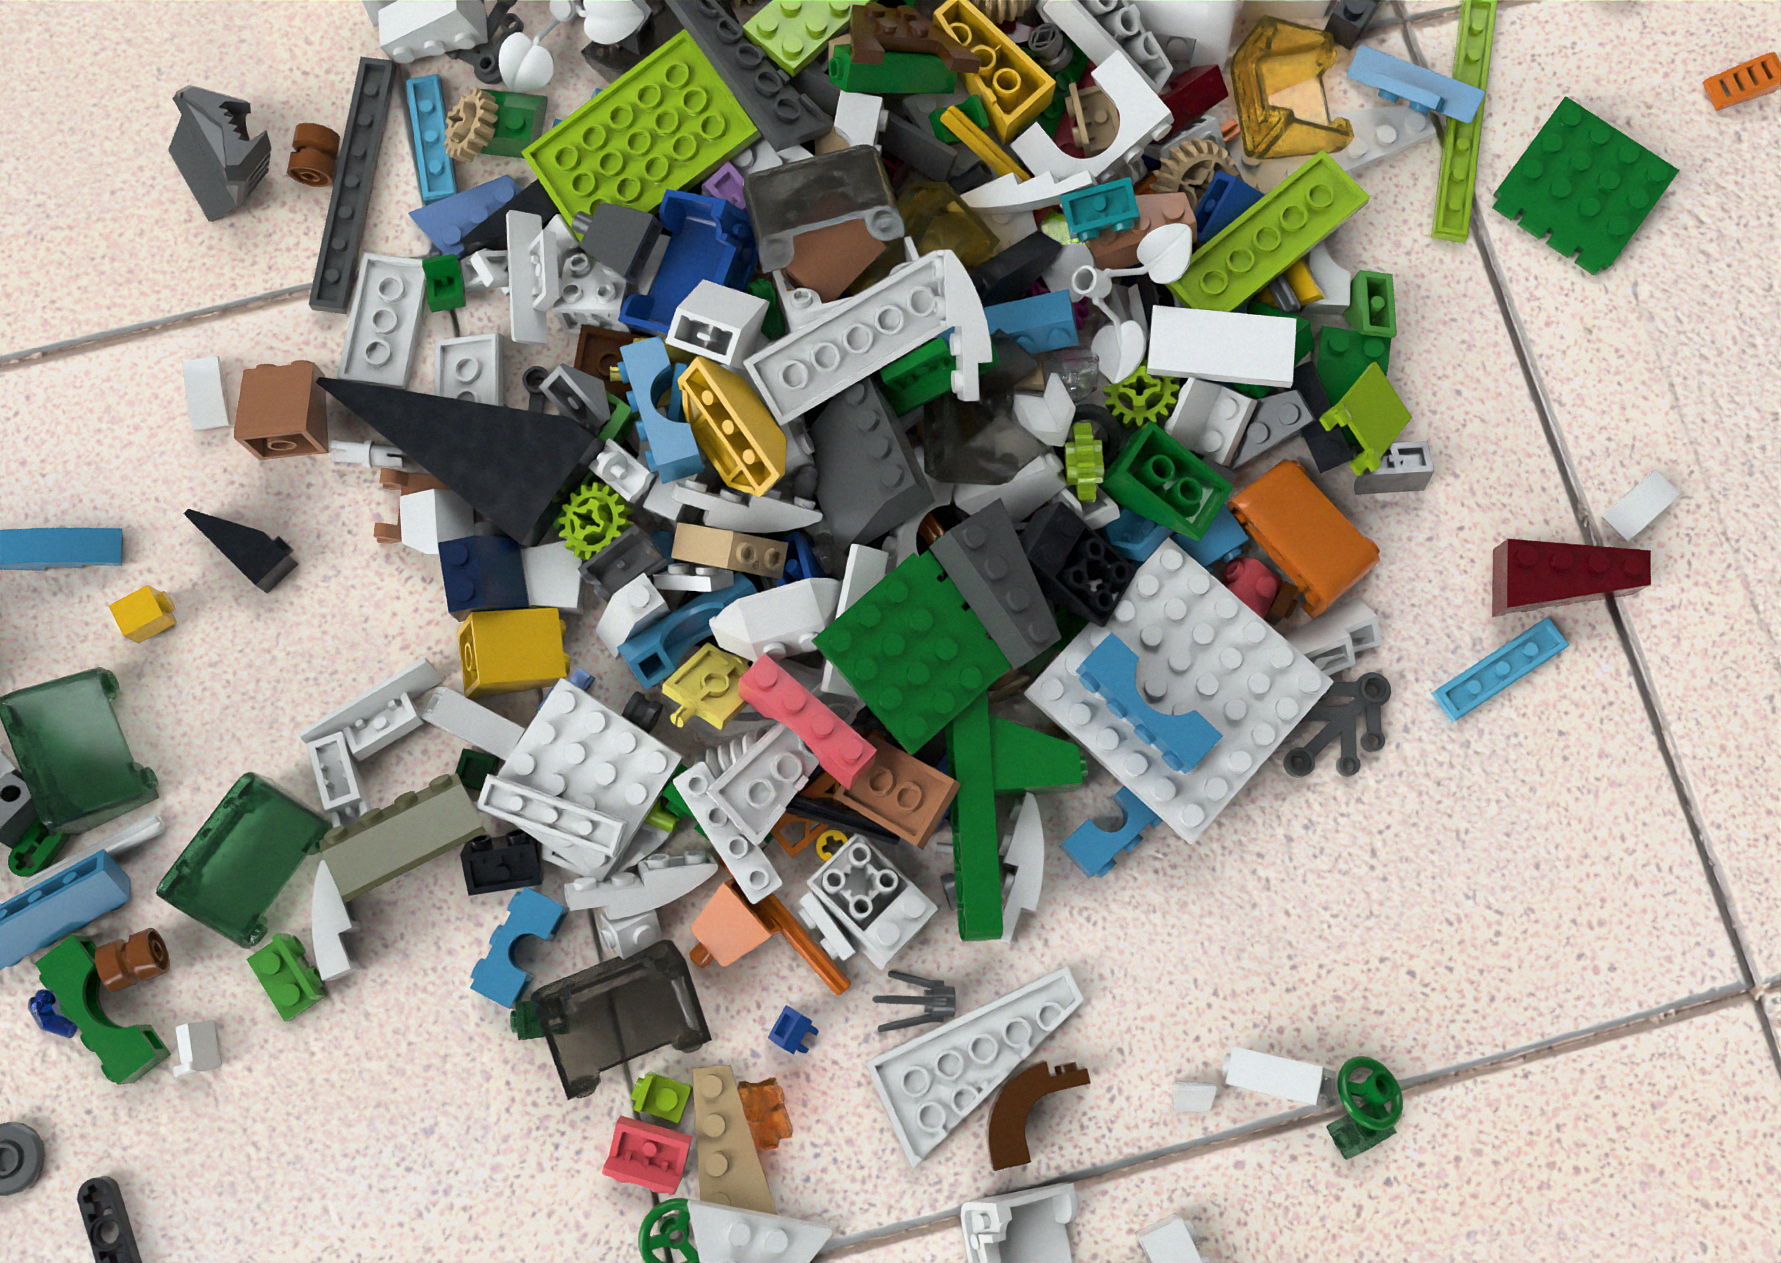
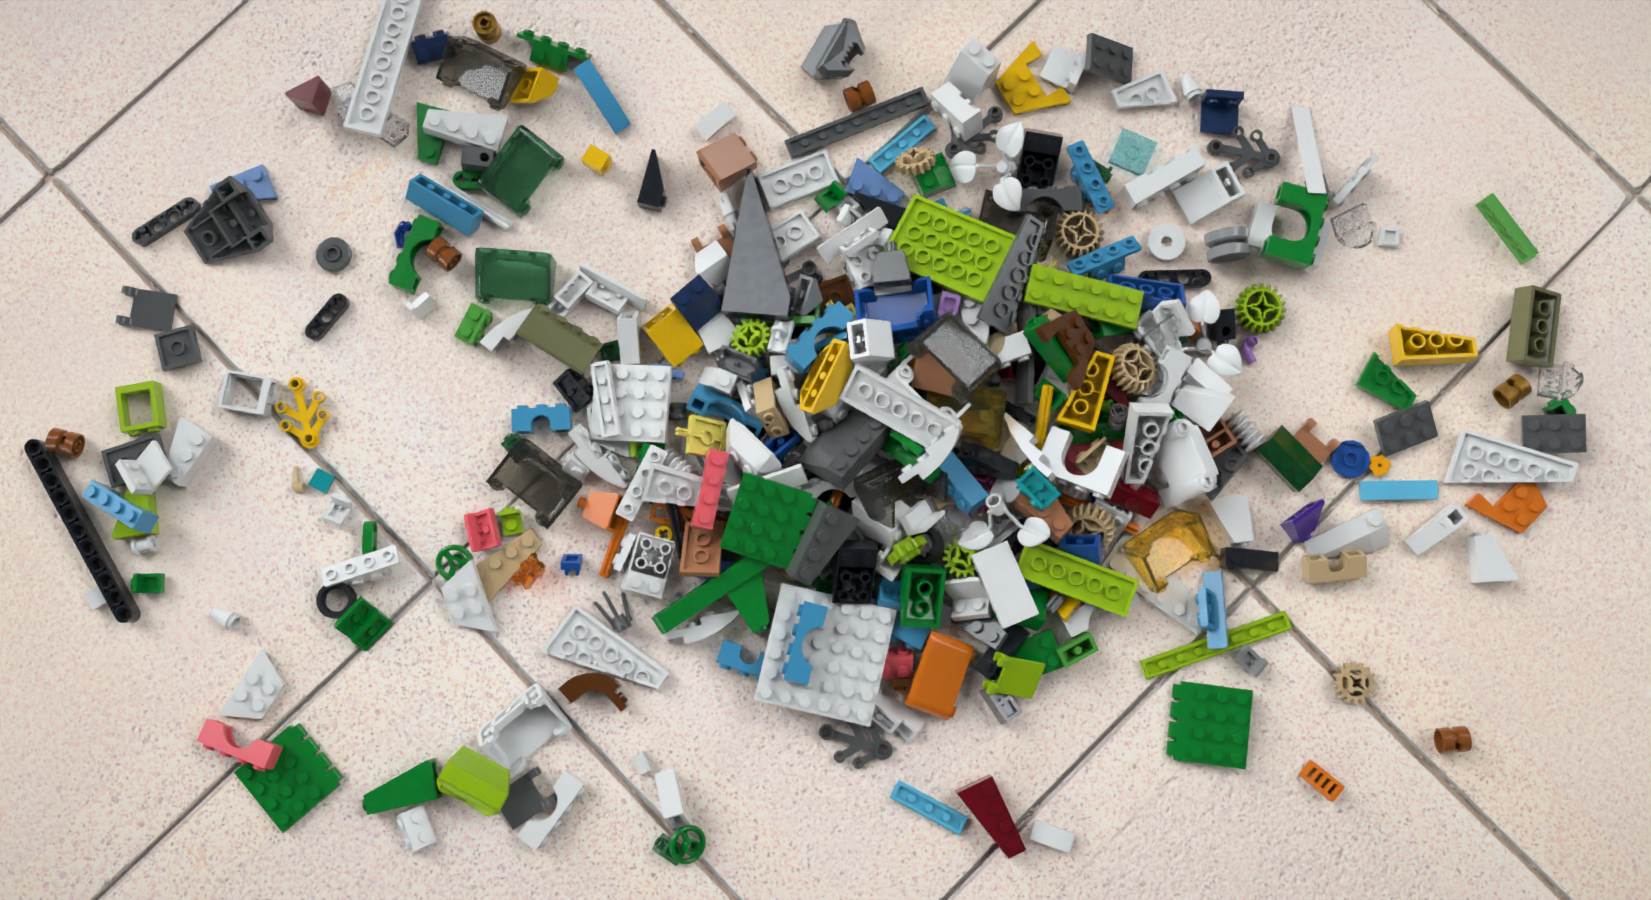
camera: 60 degrees right, 5 degrees up
(1517, 80) = (1250, 660): none -> light grey bracket

